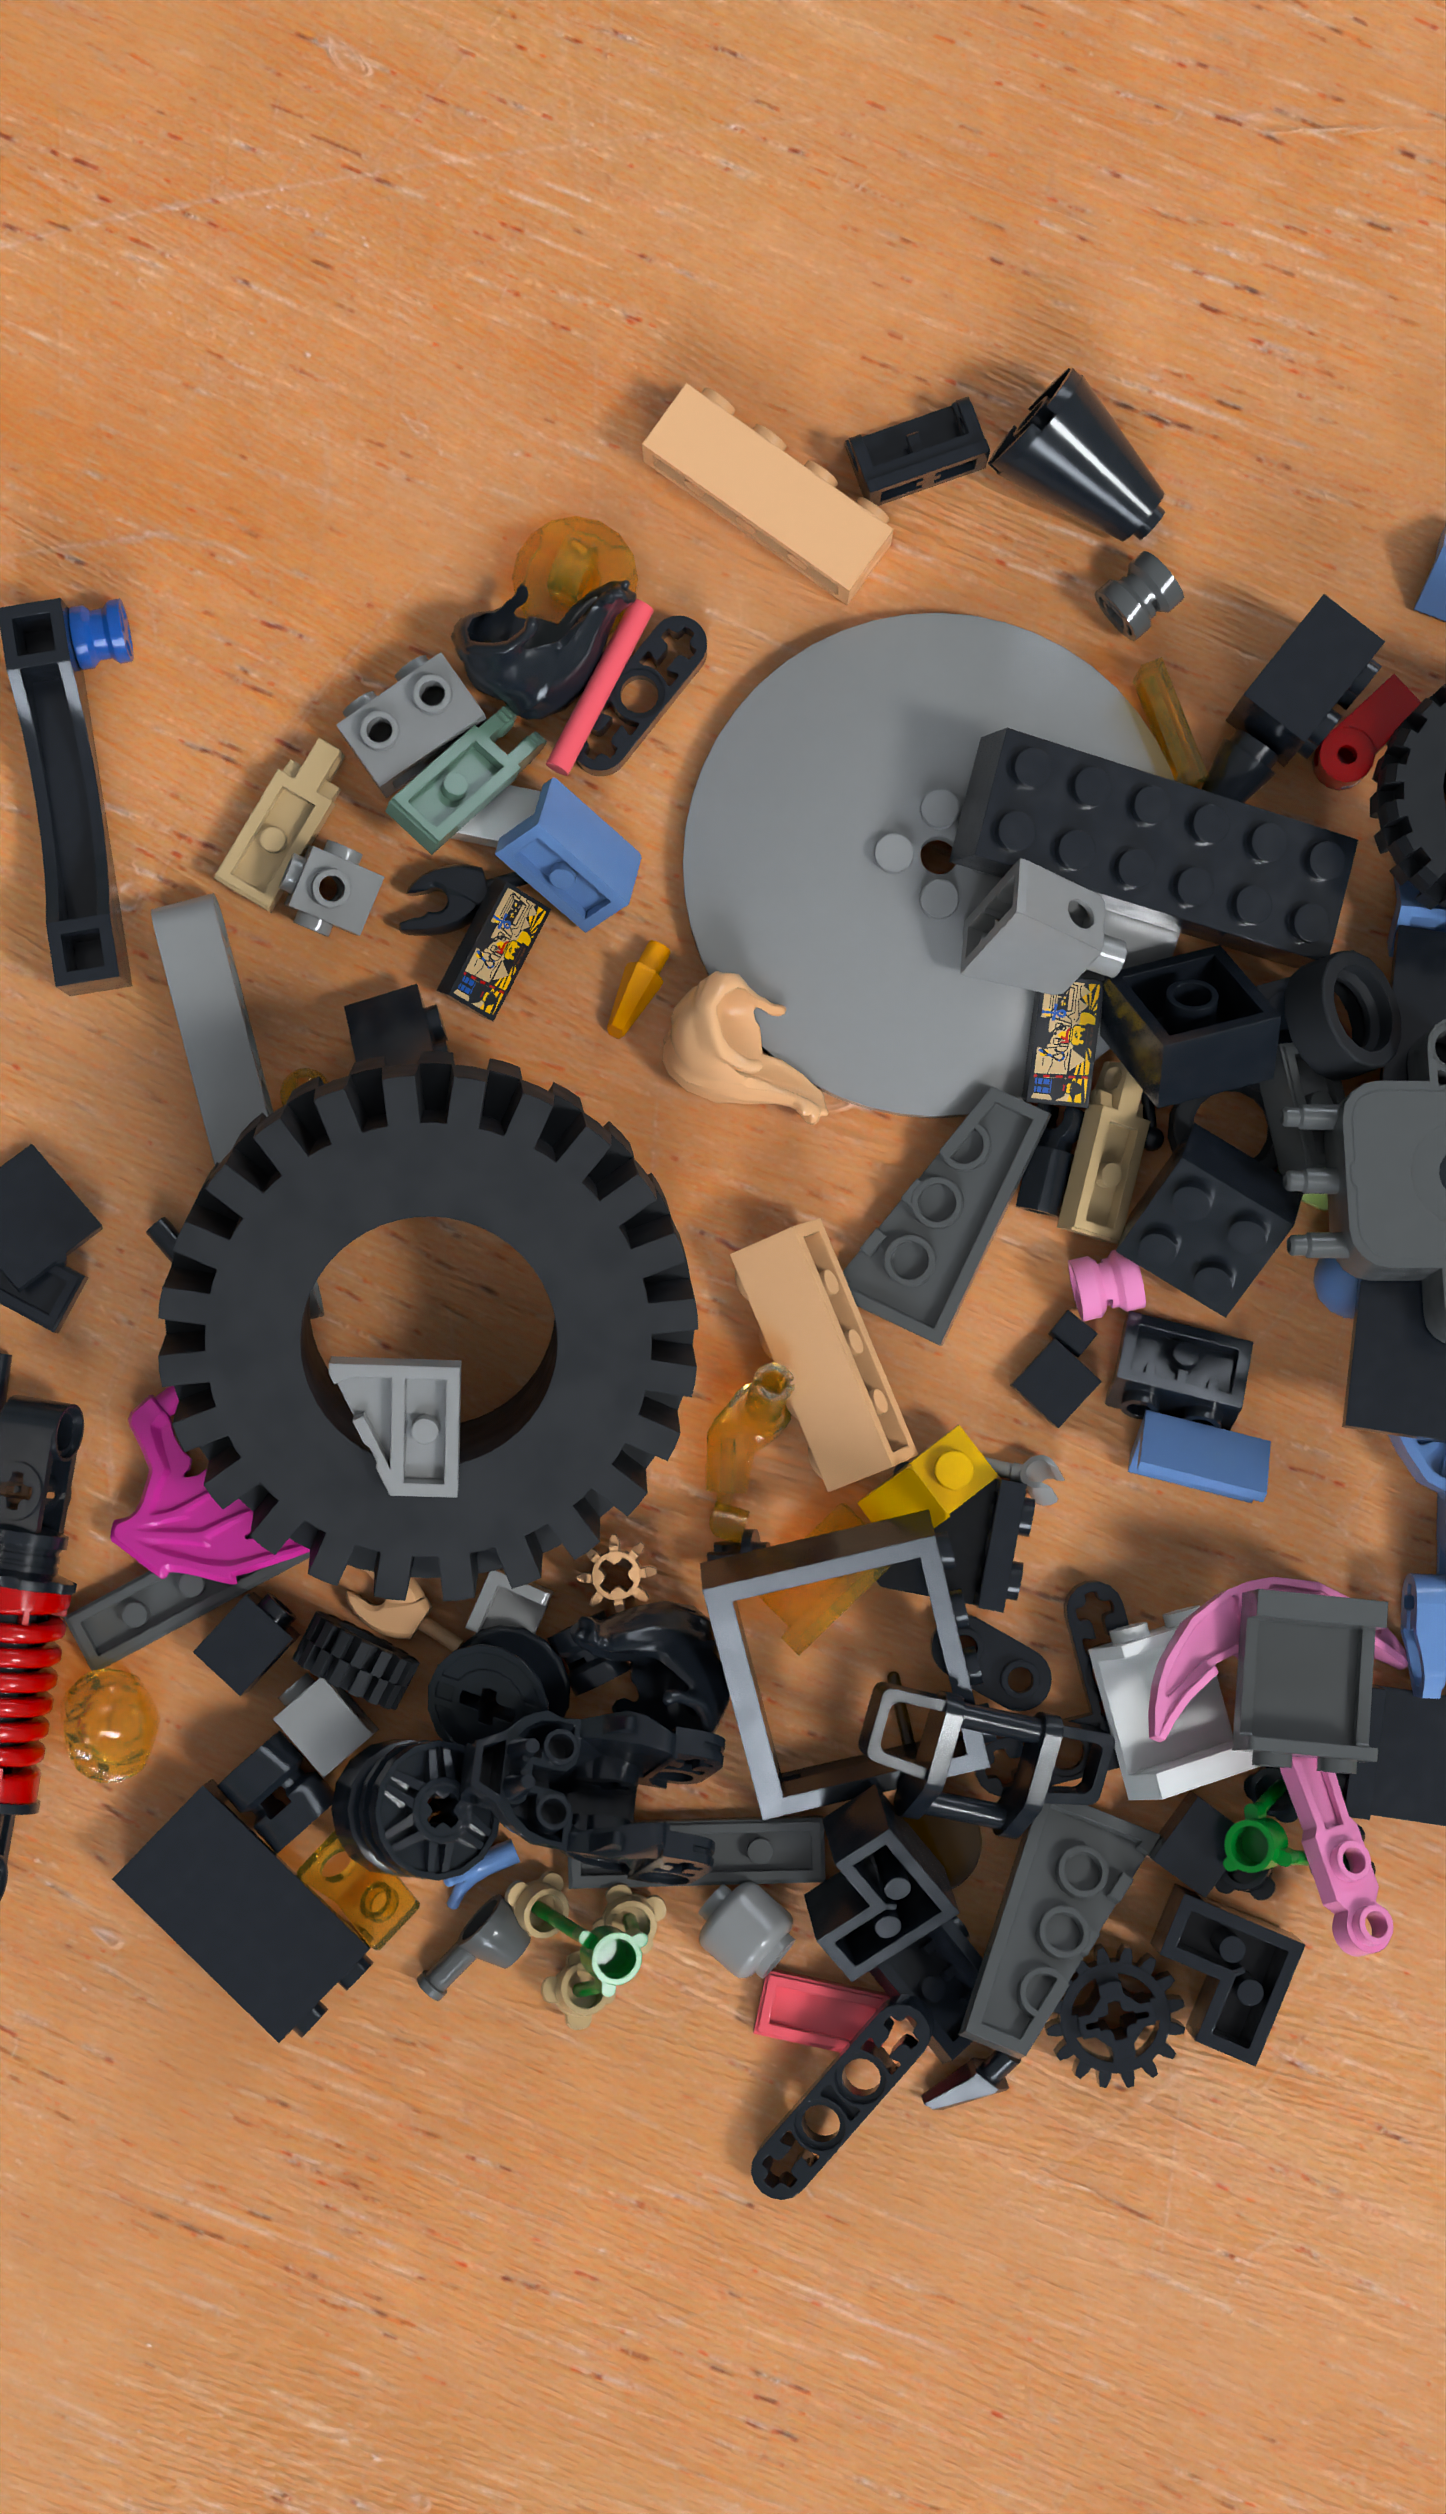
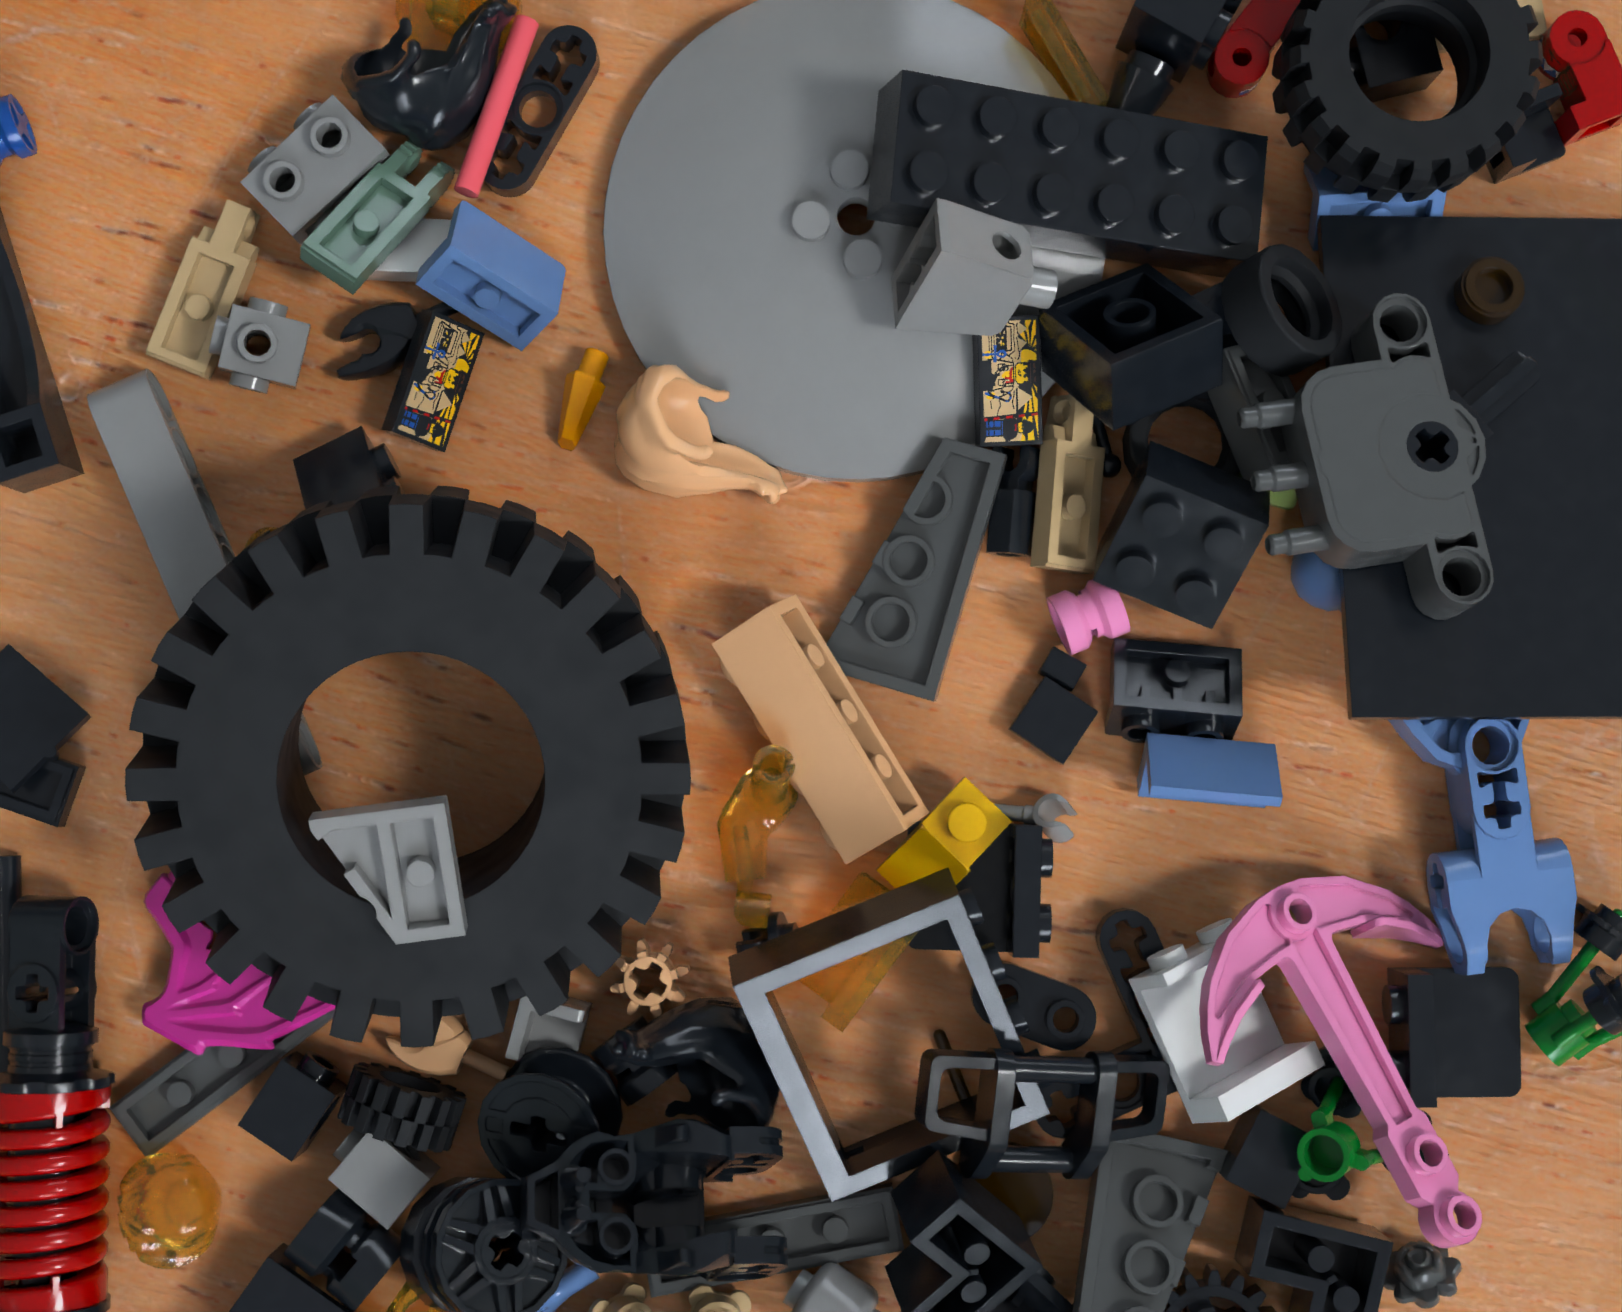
camera: 10 degrees left, 0 degrees up
(1306, 1679) = (1353, 979): dark grey panel -> none
(1332, 1986) = (1422, 1274): none -> dark grey plant

